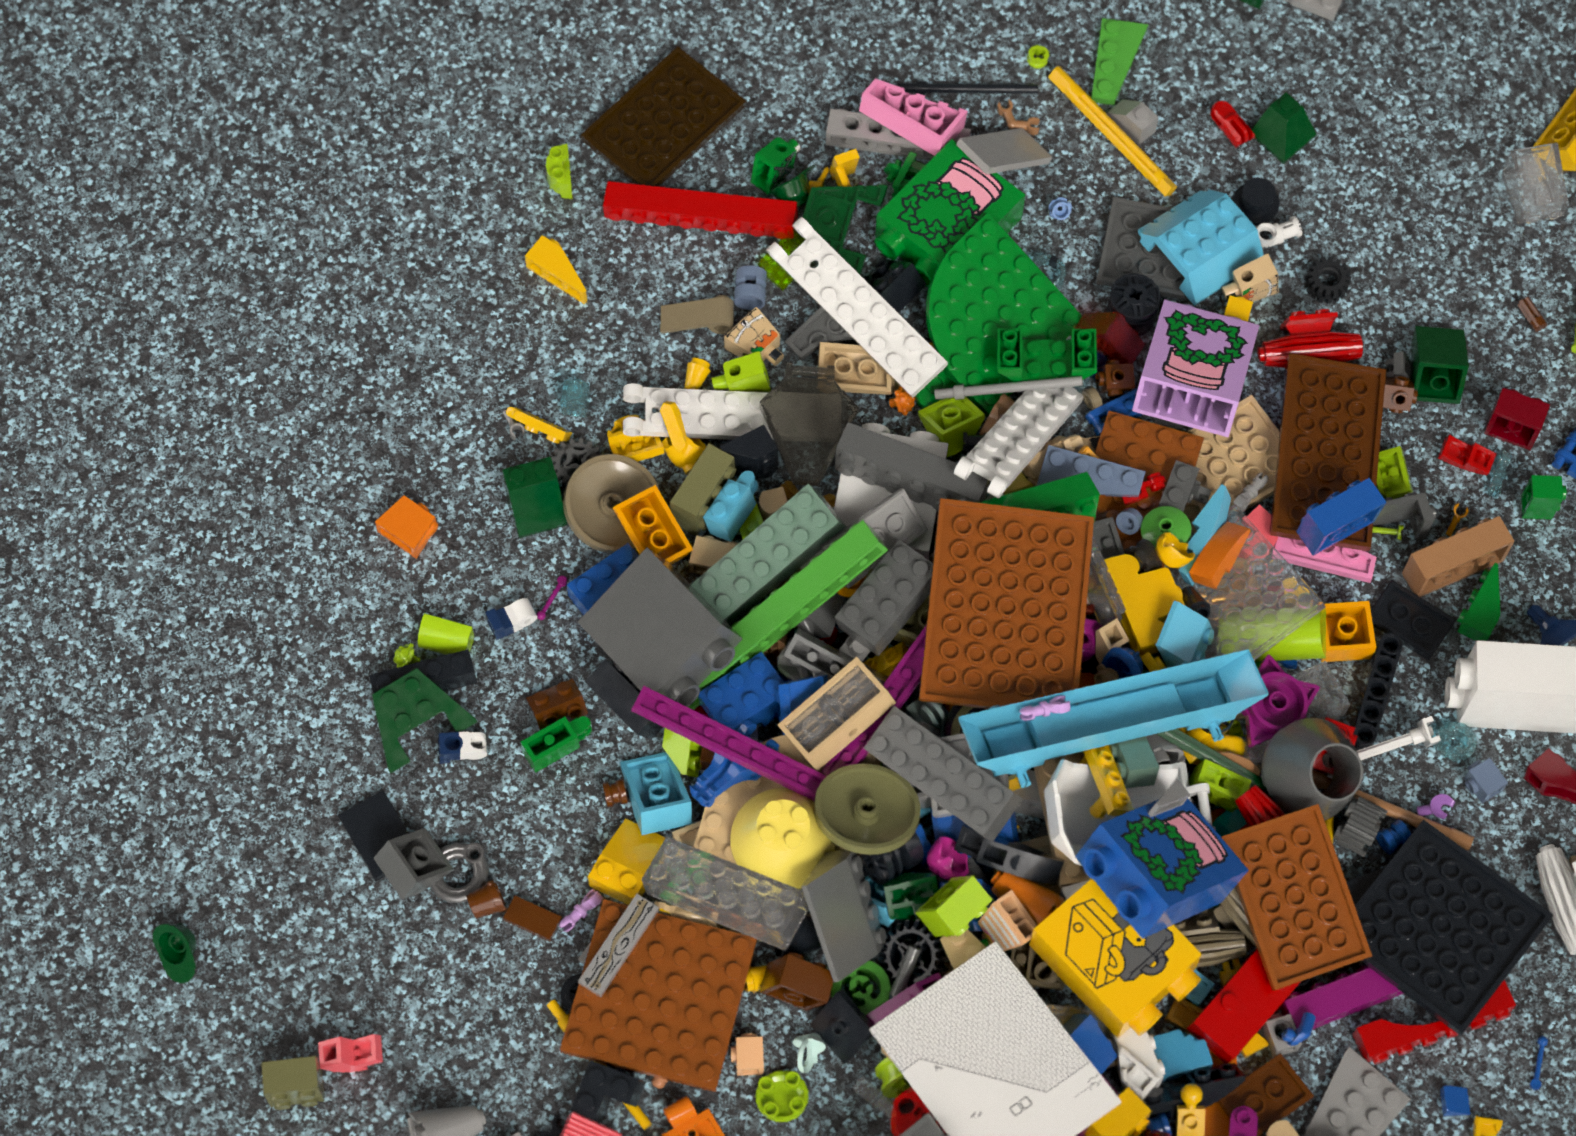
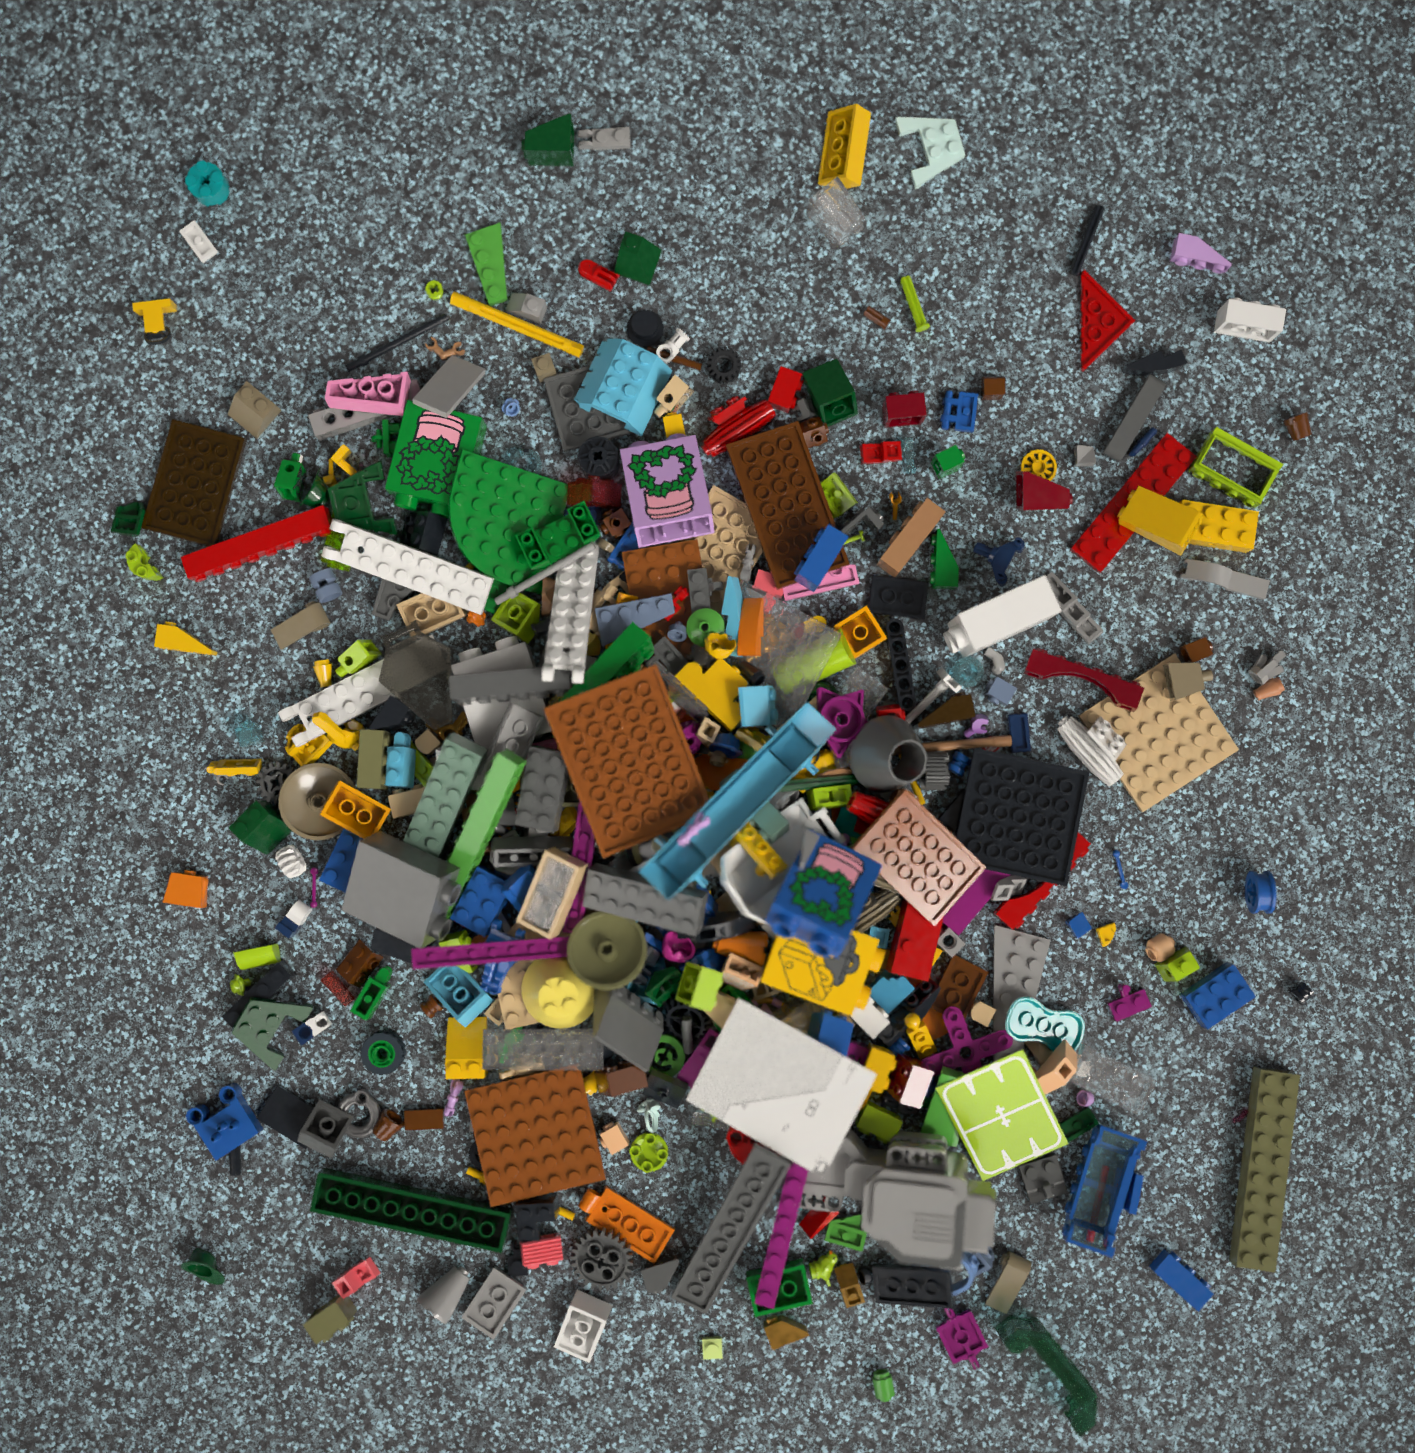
camera: 20 degrees left, 20 degrees up
(298, 806) = (227, 1128): none -> blue piece
(461, 1010) = (411, 1210): none -> dark green brick
(515, 719) = (338, 989): none -> clear red piece
(528, 800) = (374, 1060): none -> black wheel
(544, 551) = (290, 861): none -> white gear
(569, 122) = (128, 519): none -> dark green slope
(618, 945) = (491, 1120): light grey tile -> none
(753, 335) = (350, 623): tan torso -> none
(771, 78) = (252, 410): none -> dark tan slope
(1120, 184) = (544, 367): none -> dark tan brick
(1135, 1074) = (872, 1032): white tile -> none
(1283, 256) = (678, 359): none -> reddish brown bar
(1302, 1032) = (963, 939): blue arm -> none
(1387, 336) = (784, 389): none -> red brick
(1387, 1004) = (1008, 886): none -> light grey slope
(1410, 769) = (955, 709): none -> dark brown slope
(1487, 839) = (1019, 732): none -> dark blue tile
(1499, 744) = (998, 660): none -> light grey arm

